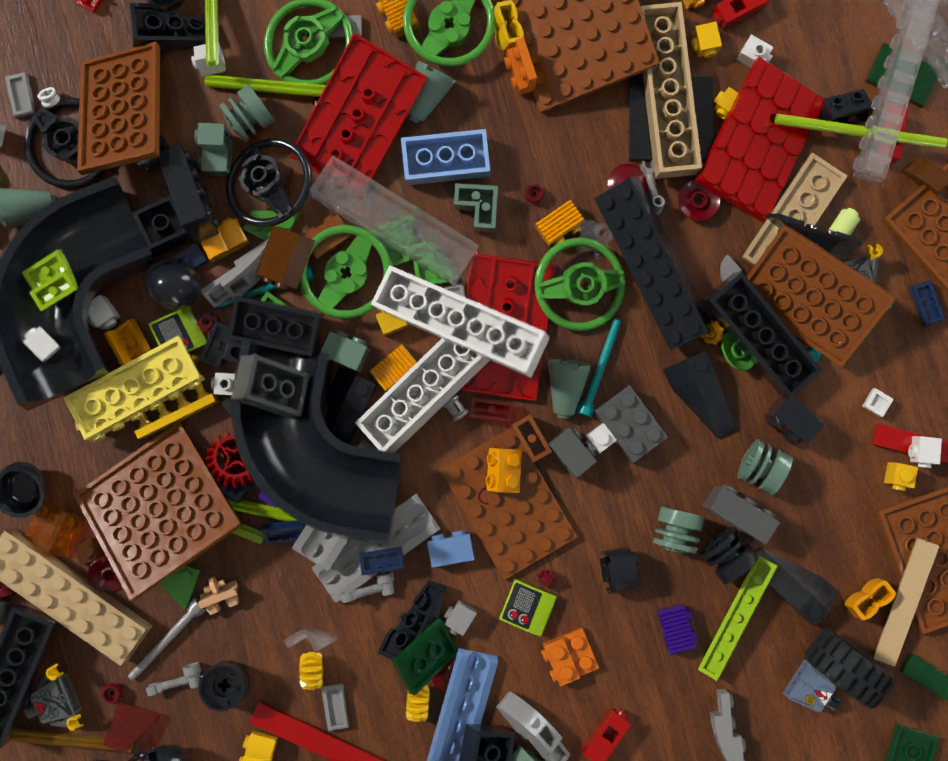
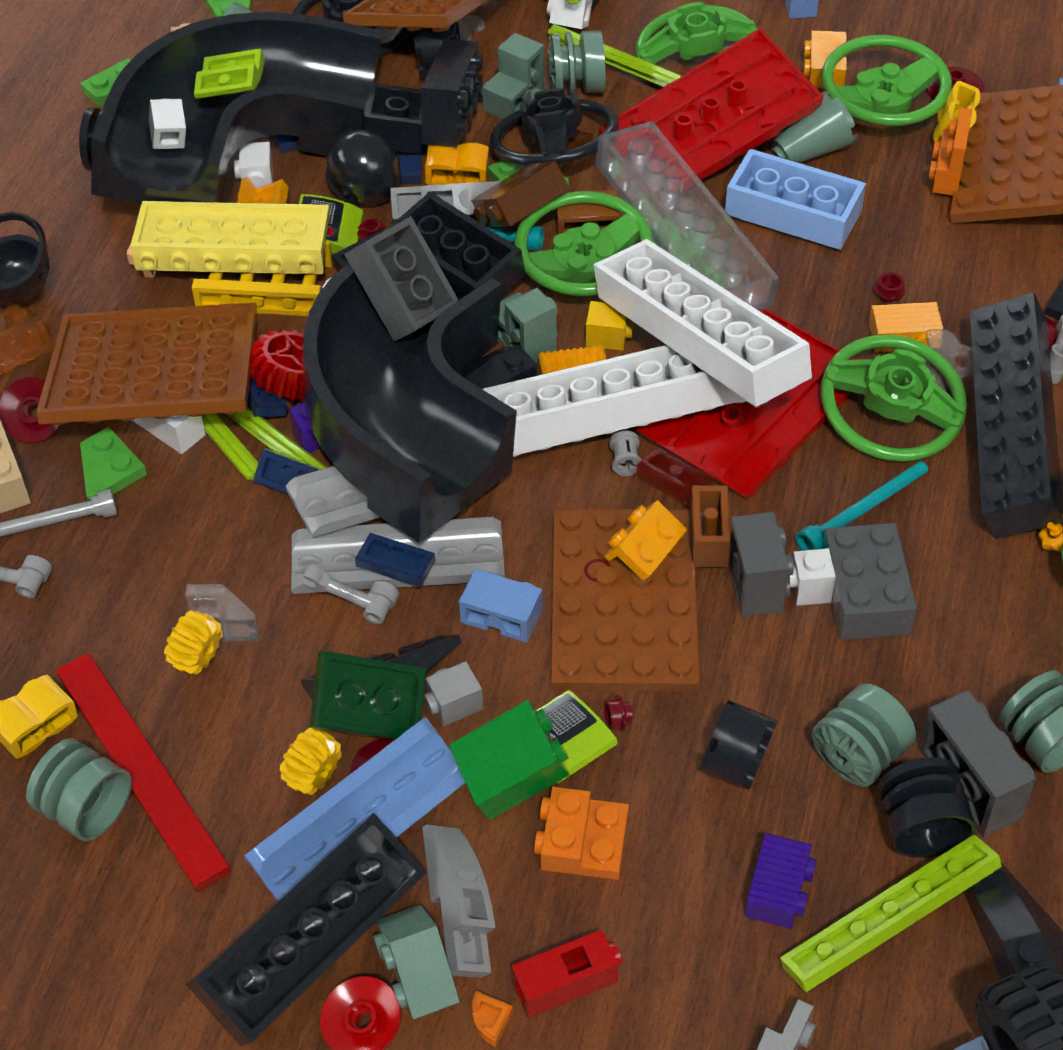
camera: 30 degrees right, 35 degrees down
(212, 690) = (63, 595): black wheel -> none
(216, 592) = (145, 495): light nougat hips -> none
(335, 707) = (187, 720): light grey tile -> none
(481, 200) = (808, 256): sand green brick -> none
(514, 644) = (510, 759): none -> green brick
(566, 385) = (806, 486): sand green cone -> none
(700, 389) = (1001, 595): black wedge -> none

